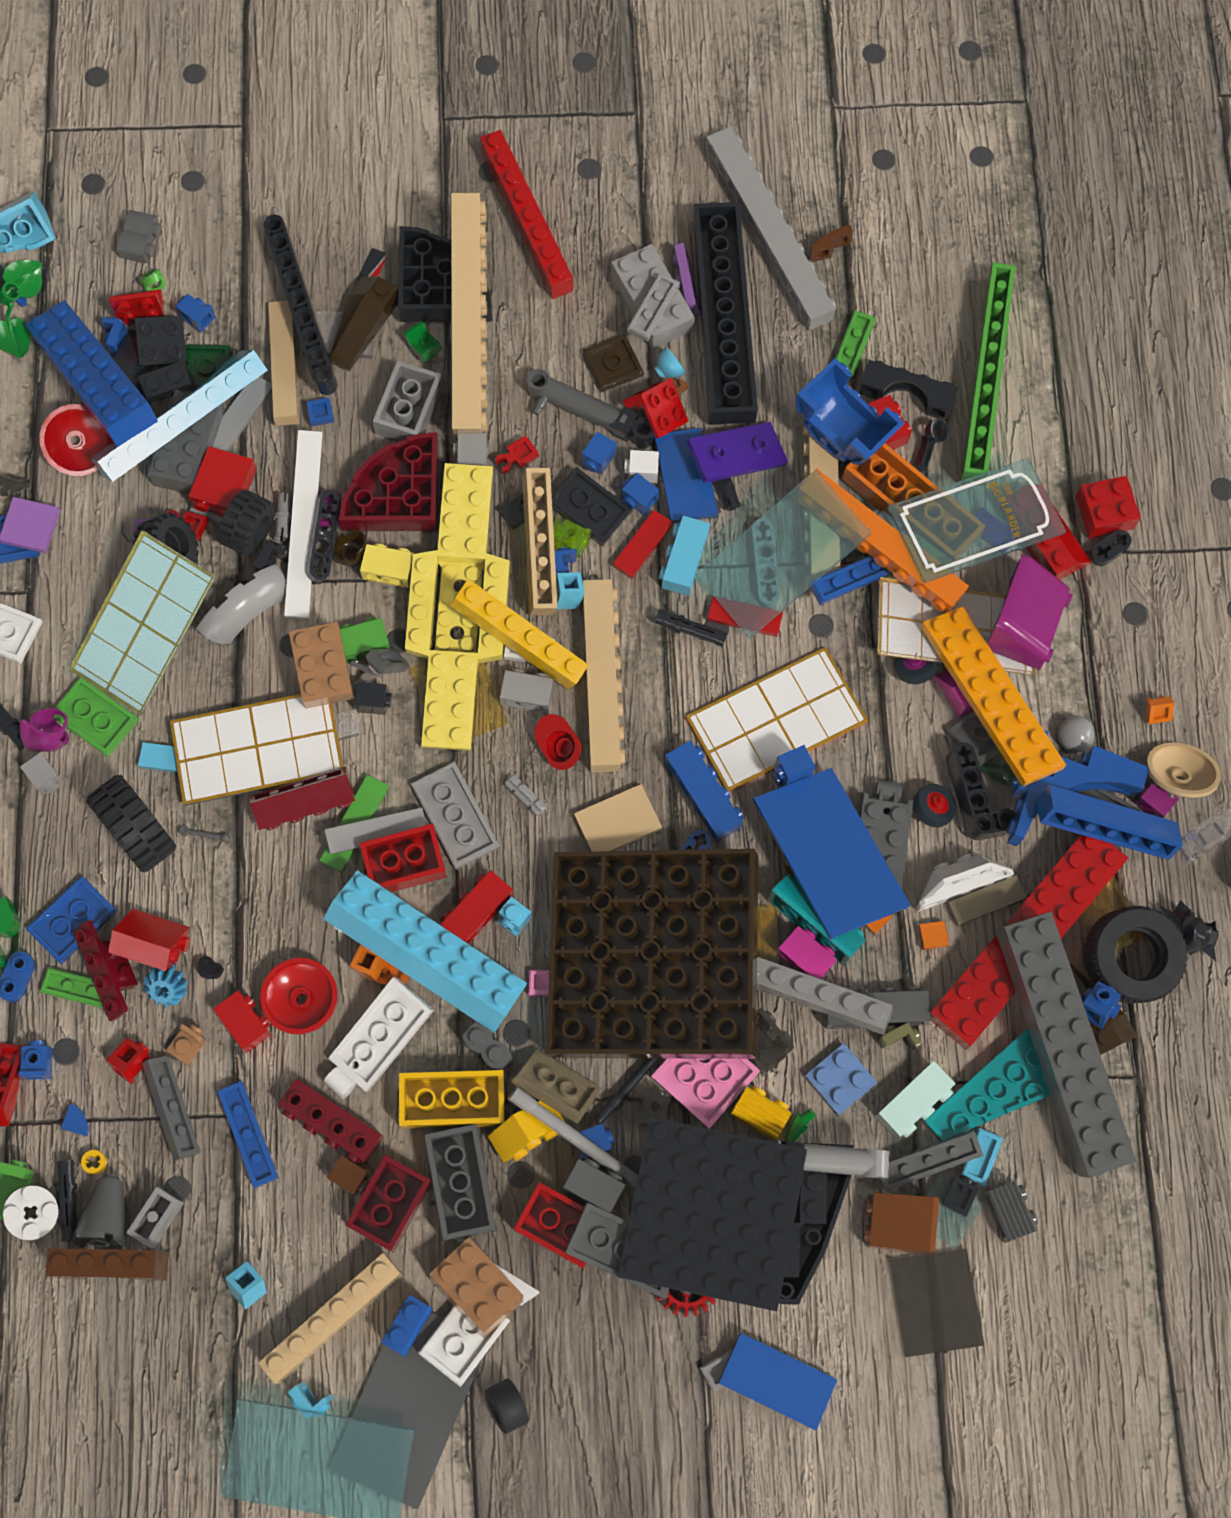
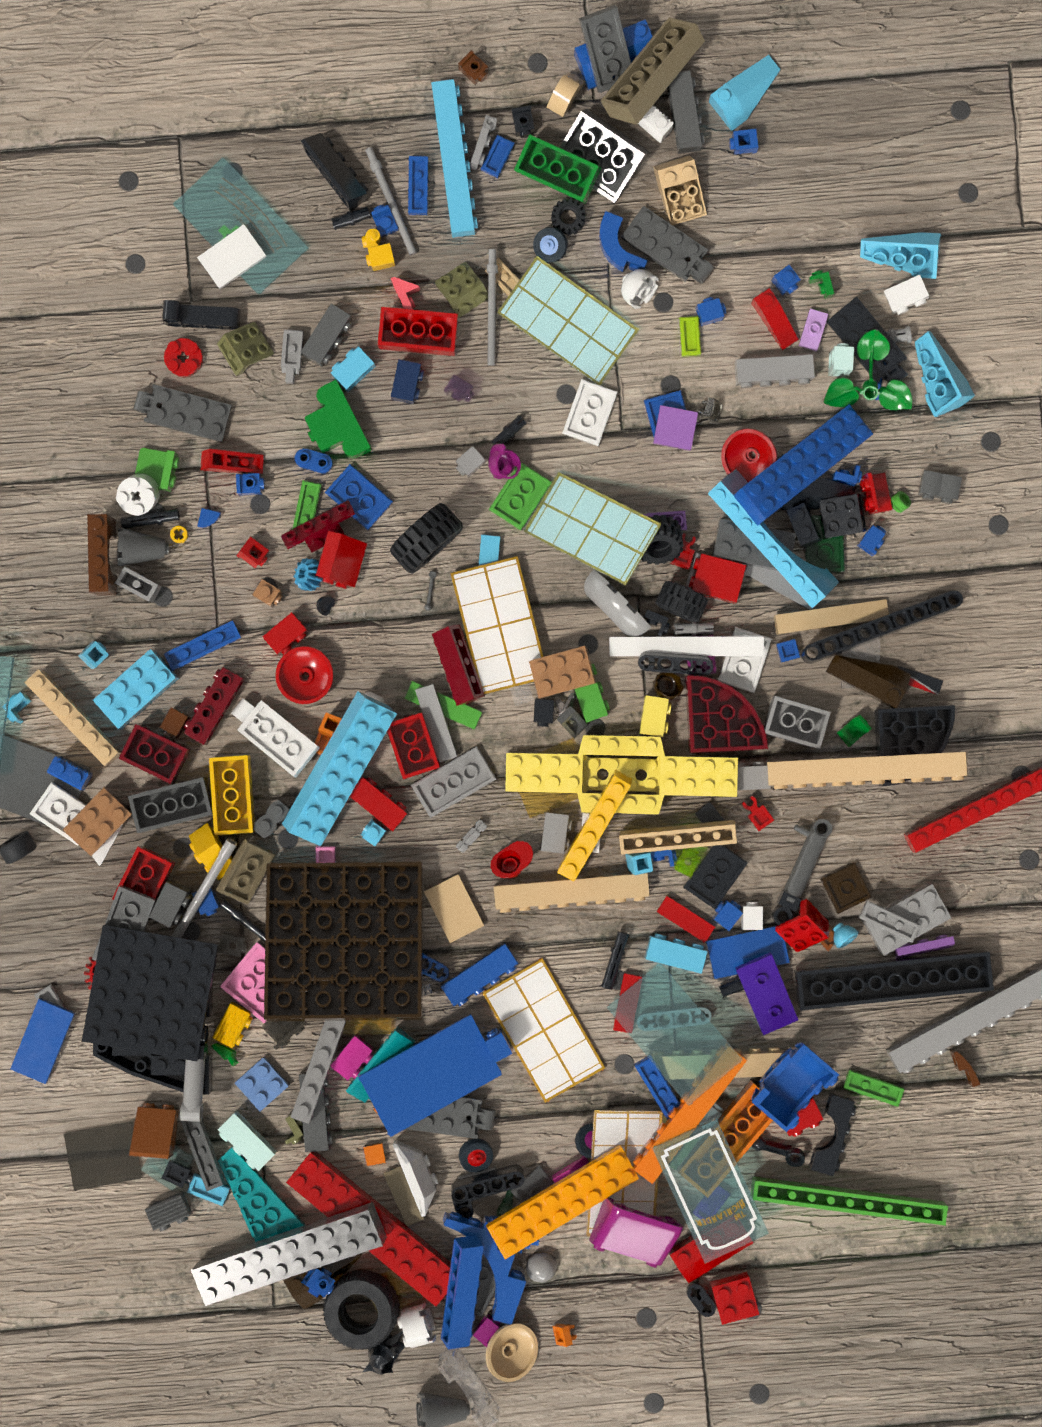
camera: 90 degrees right, 15 degrees up
(171, 1108) = (219, 587): dark grey plate -> none
(299, 1228) = (136, 689): none -> medium azure brick
(337, 464) = (743, 671): none -> white tile
(599, 453) = (760, 880): blue brick -> none
(1154, 884) = (417, 1326): none -> white brick

